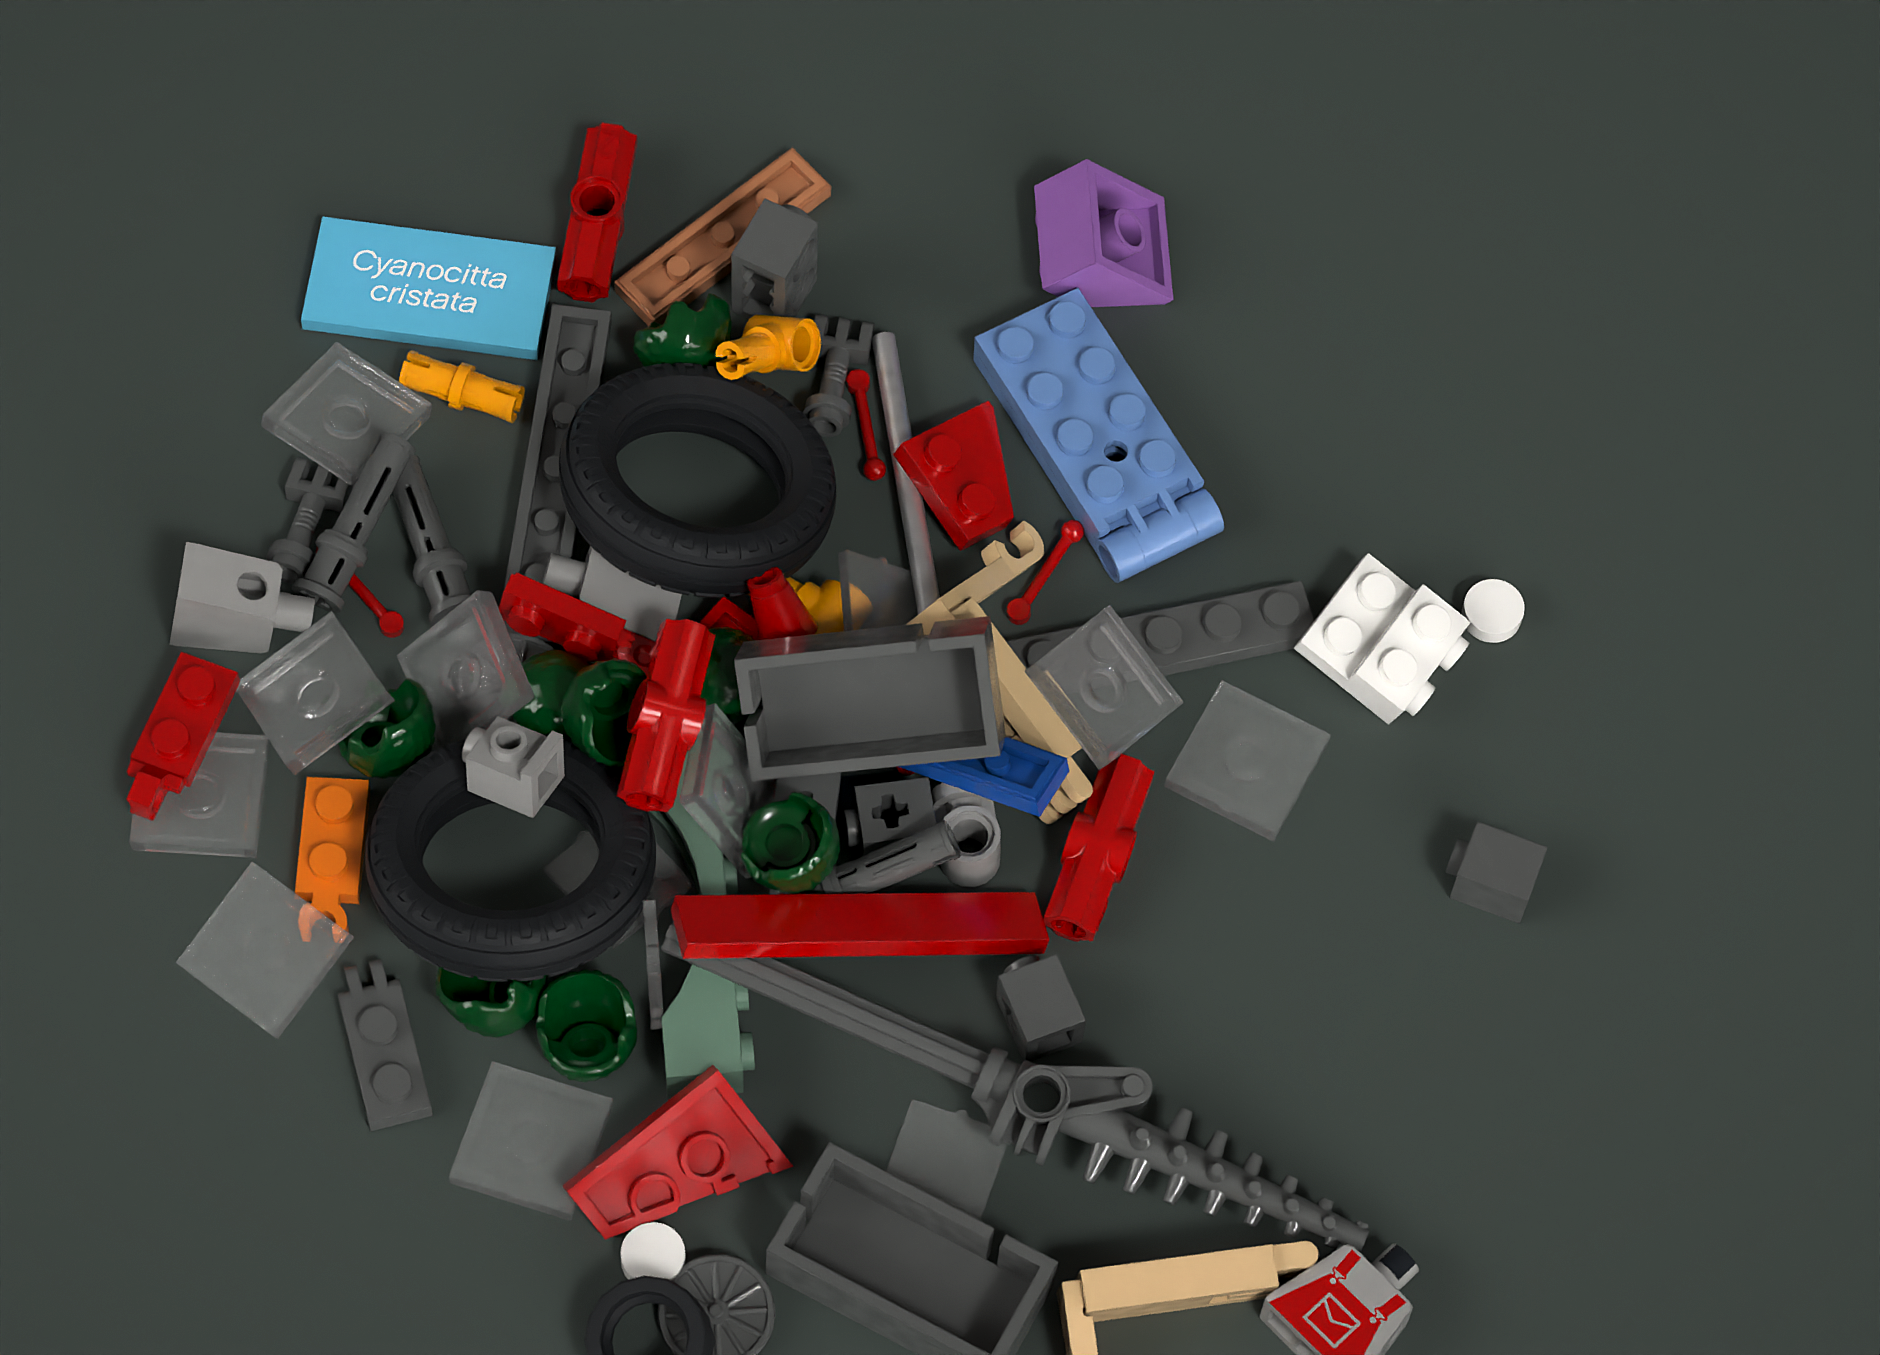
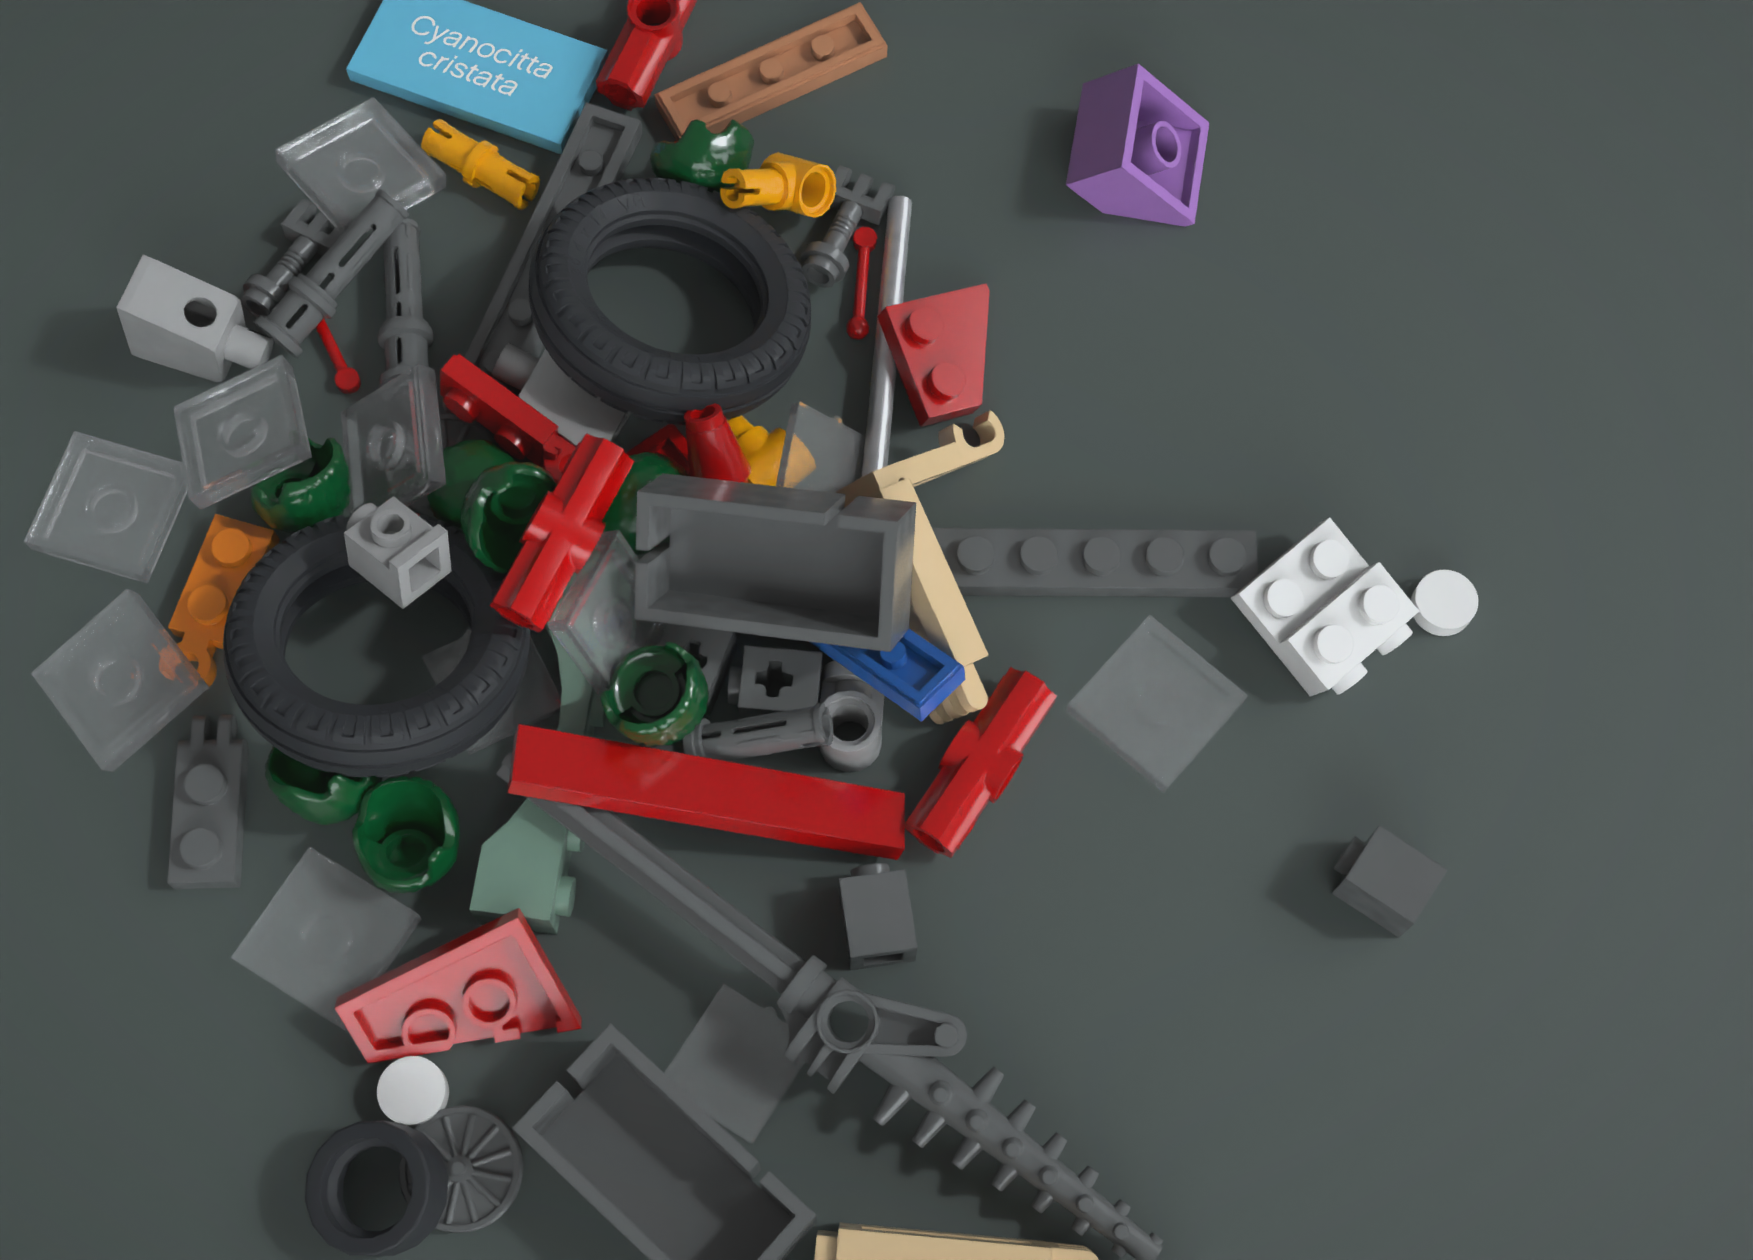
camera: 15 degrees right, 5 degrees up
(179, 731) = (100, 443): red hinge -> none
(653, 963) = (487, 789): clear piece -> none
(774, 262) = (807, 103): dark grey brick -> none
(1019, 609) = (965, 497): red hinge -> none
(1085, 405) = (1078, 310): medium blue hinge -> none
(1104, 687) = (1024, 598): clear tile -> none

